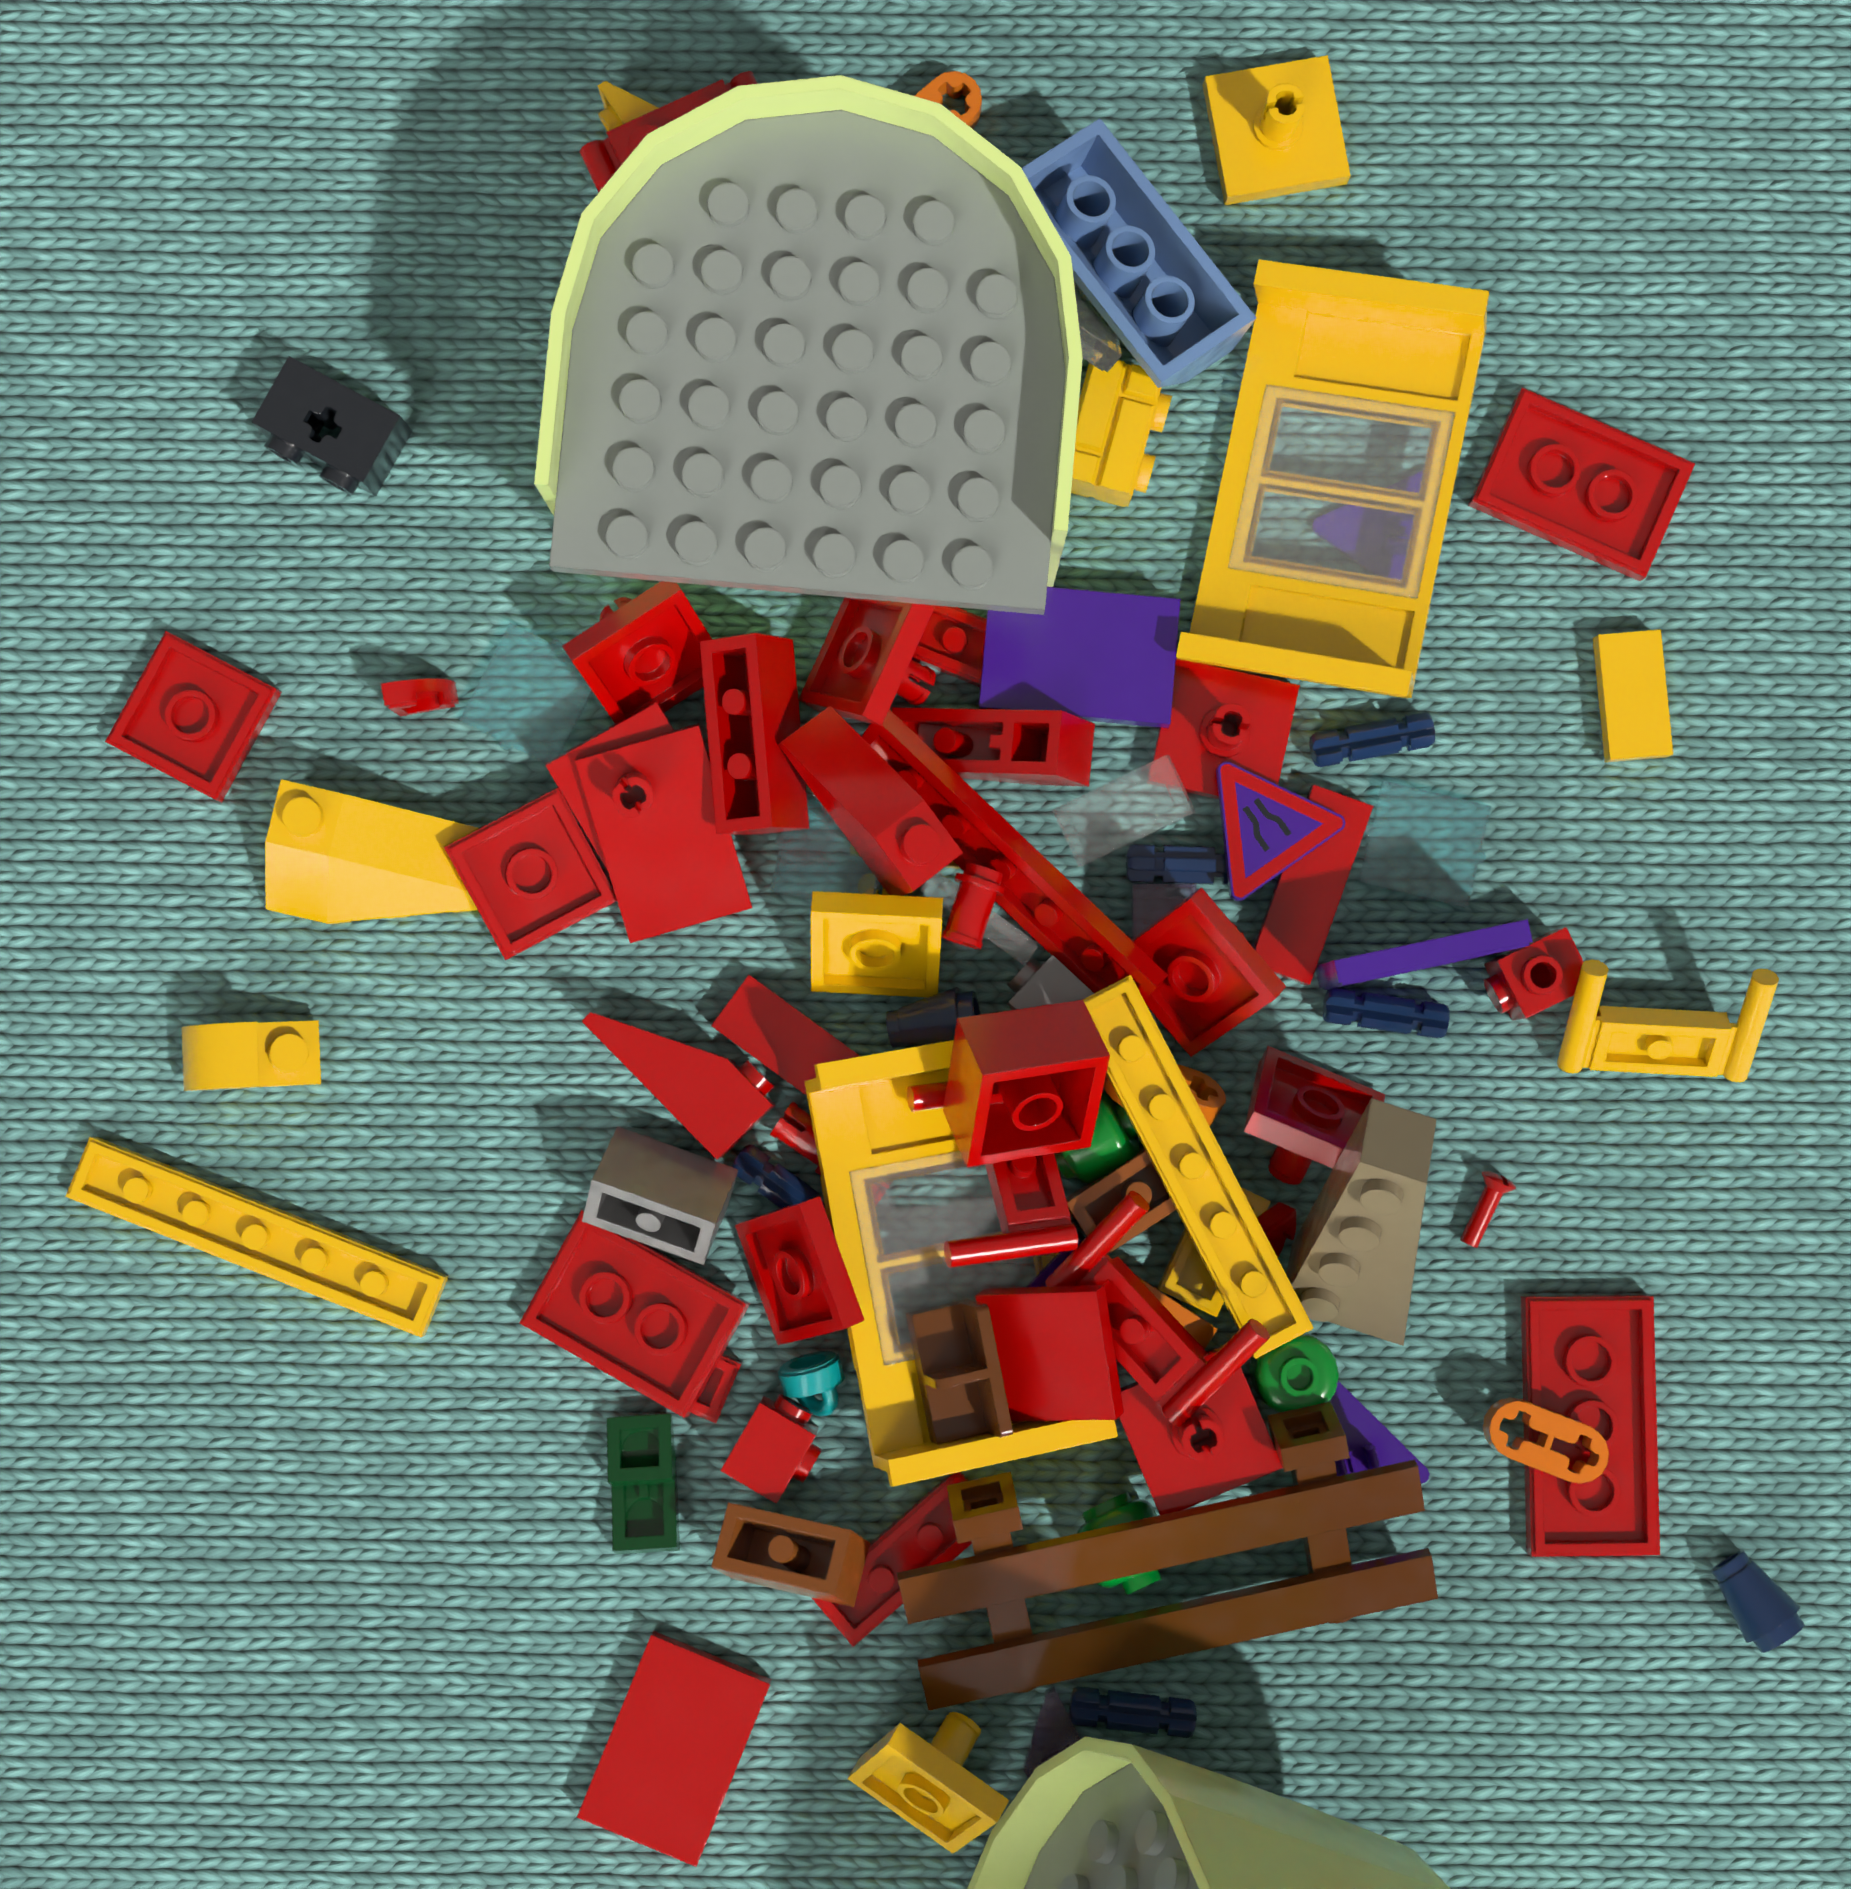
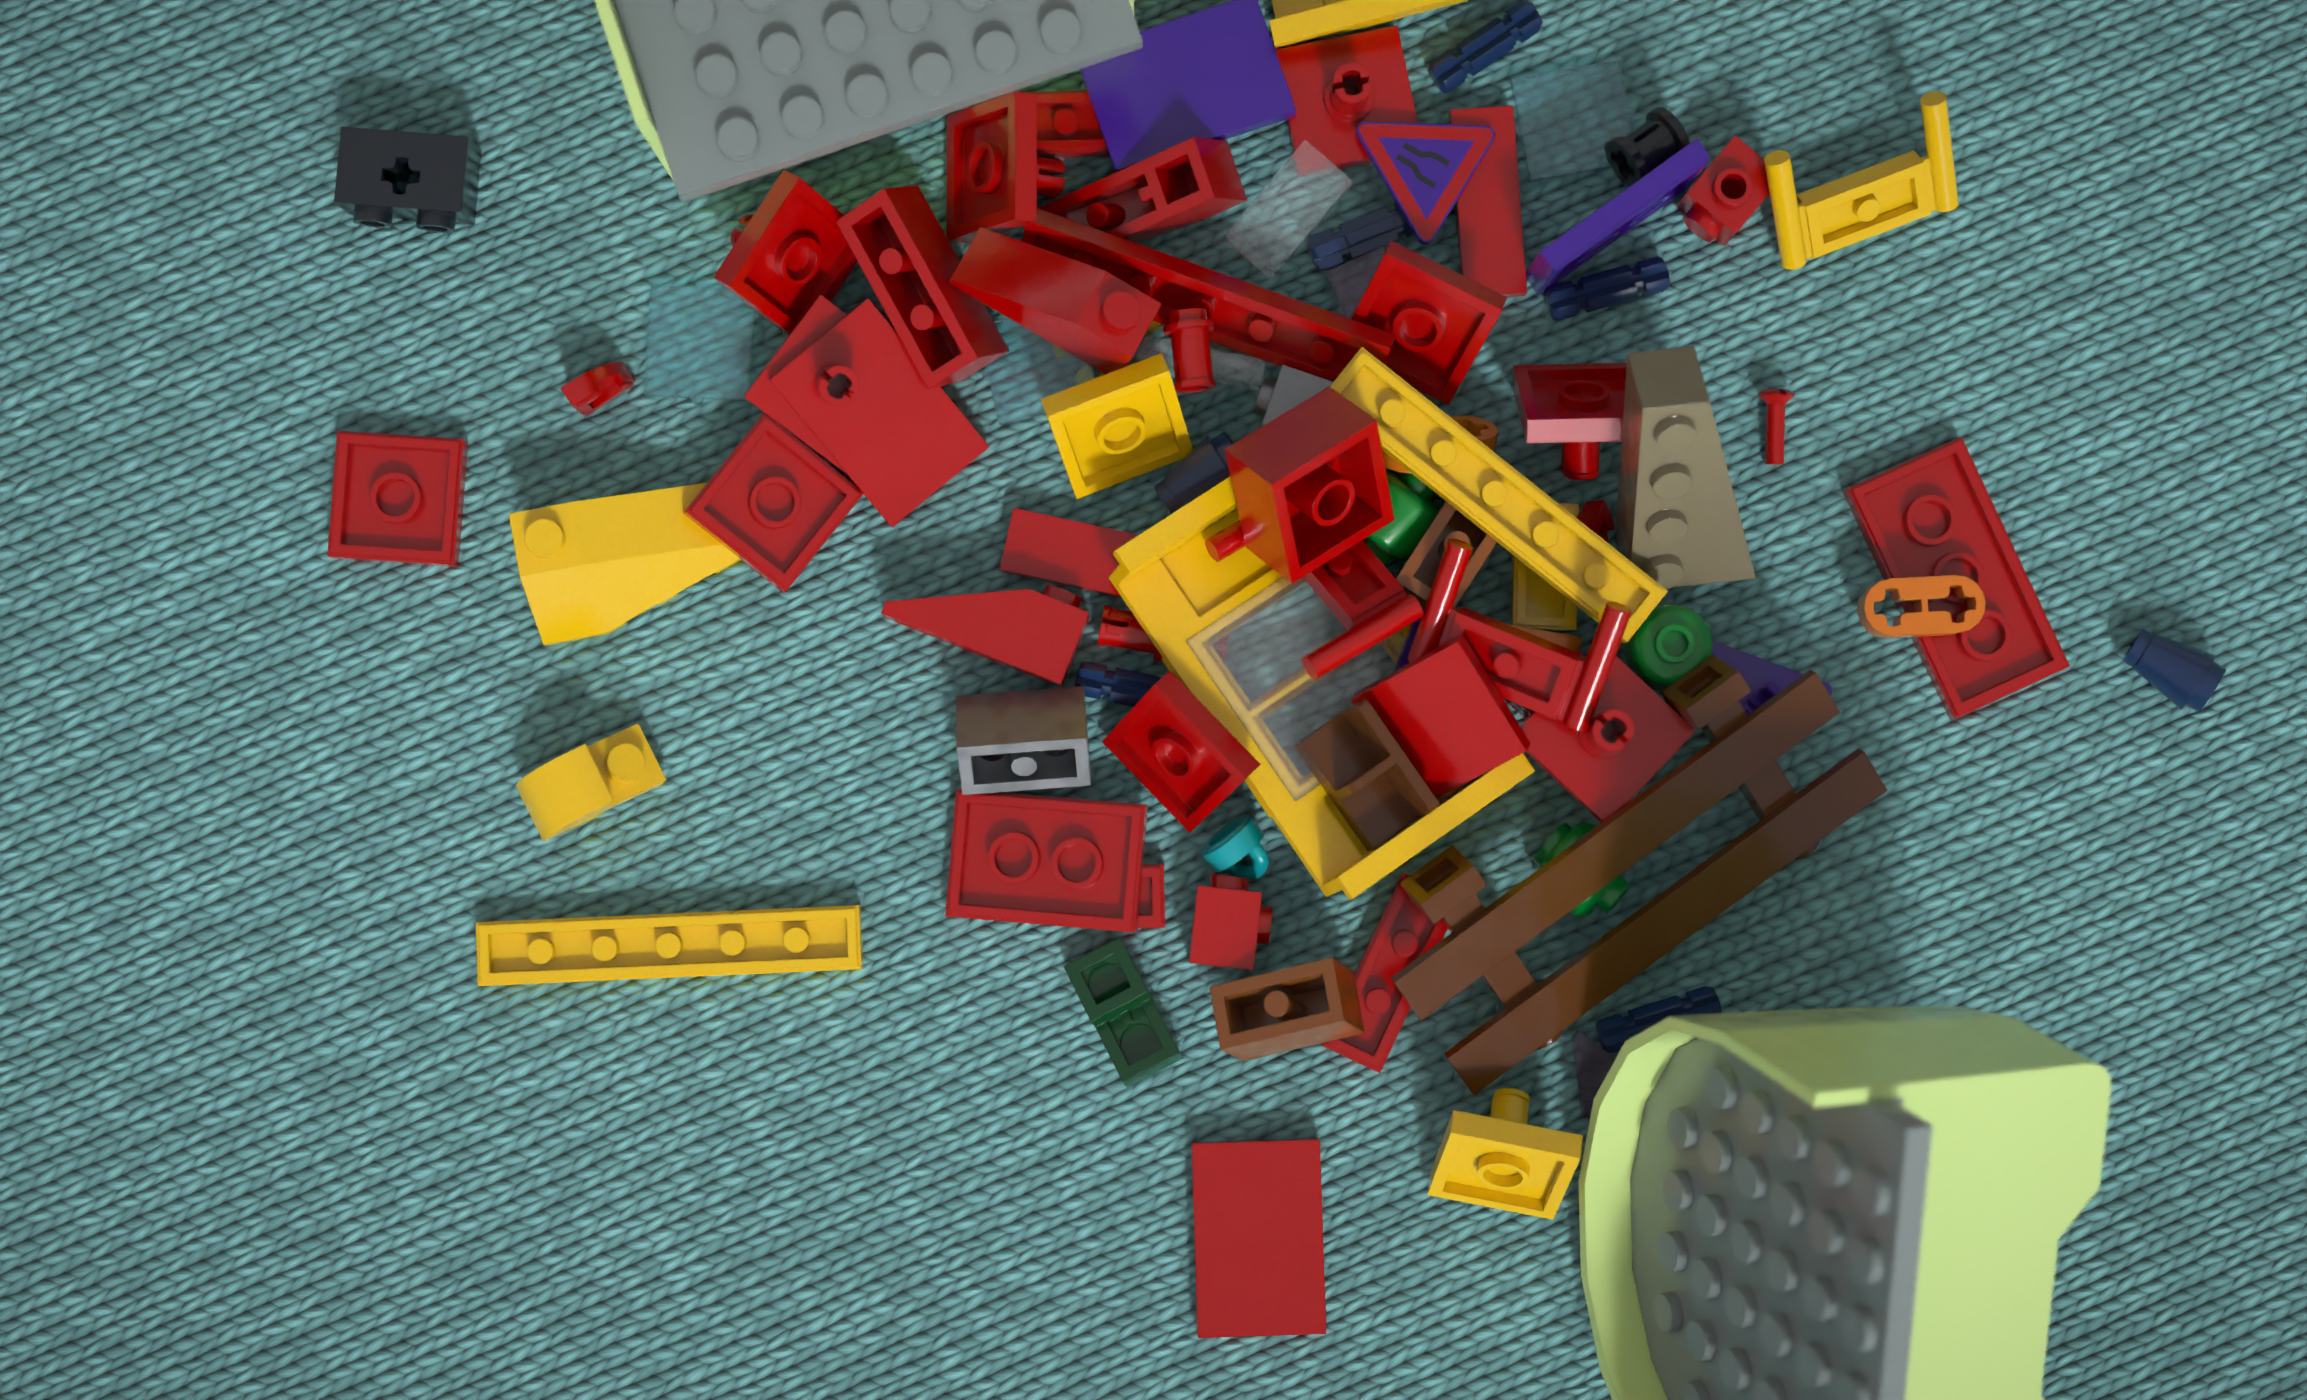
camera: 25 degrees left, 0 degrees up
(1480, 900) = (1646, 146): none -> black bush

